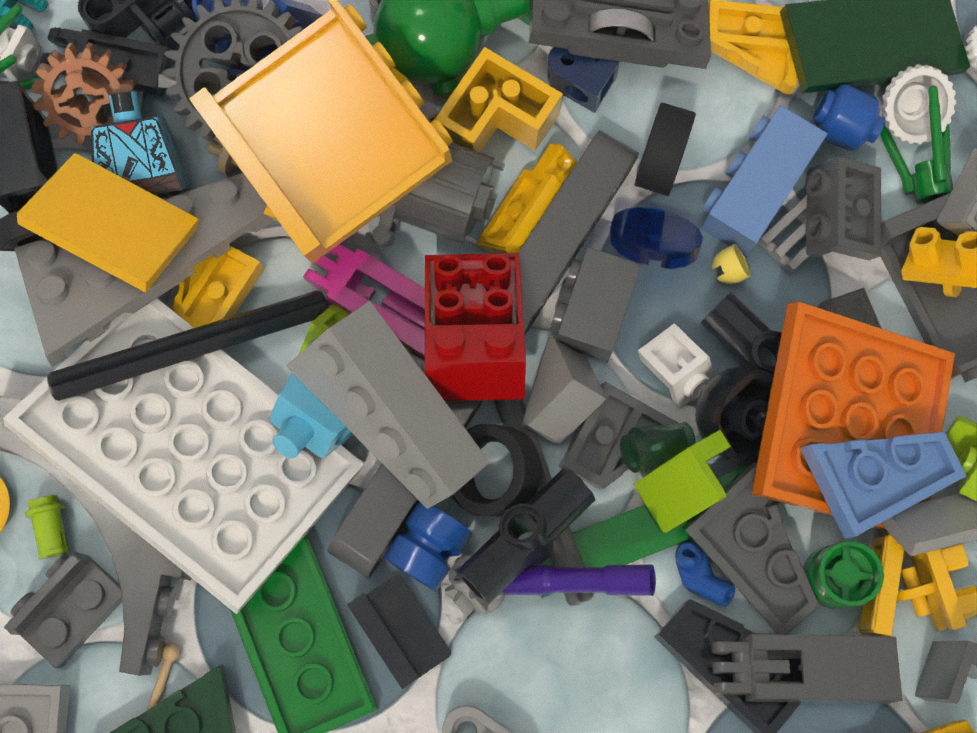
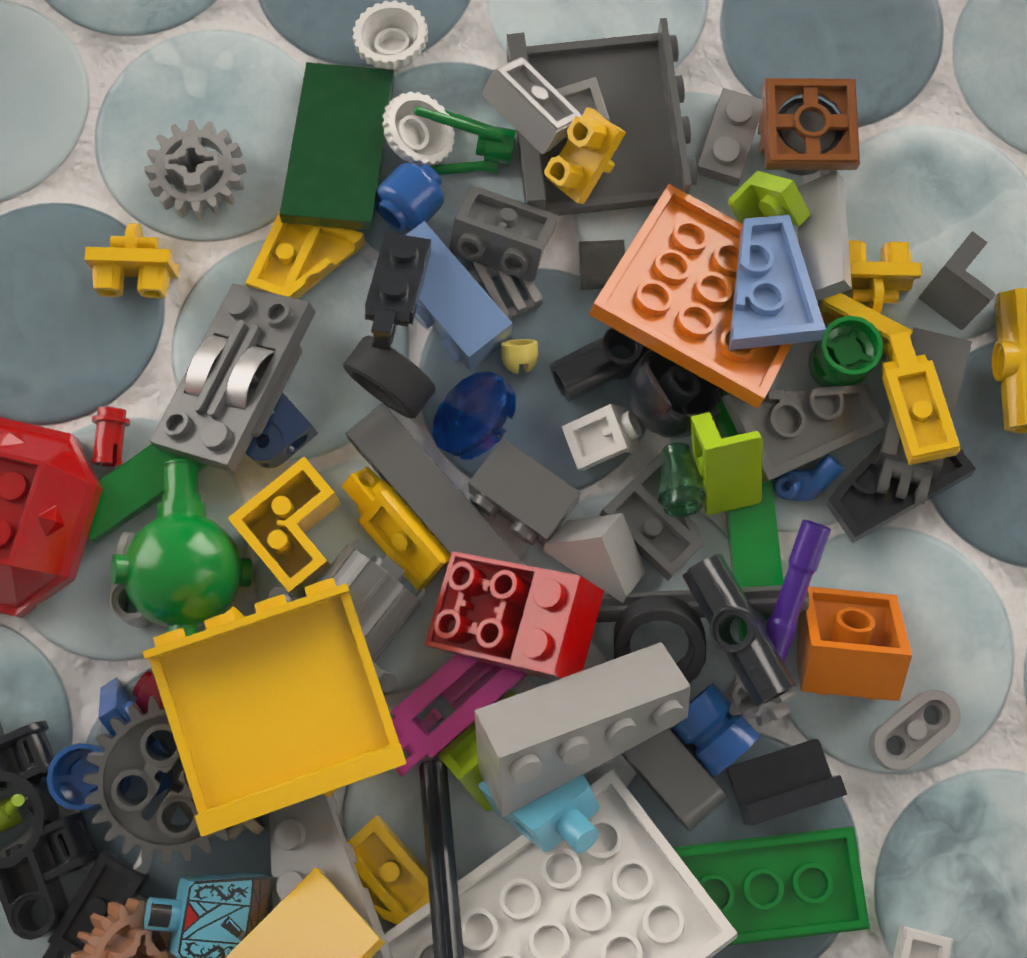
camera: 70 degrees left, 0 degrees up
(552, 659) = (852, 645): none -> orange slope
(751, 121) = (396, 285): none -> black hinge
(813, 655) = (917, 403): none -> yellow hinge

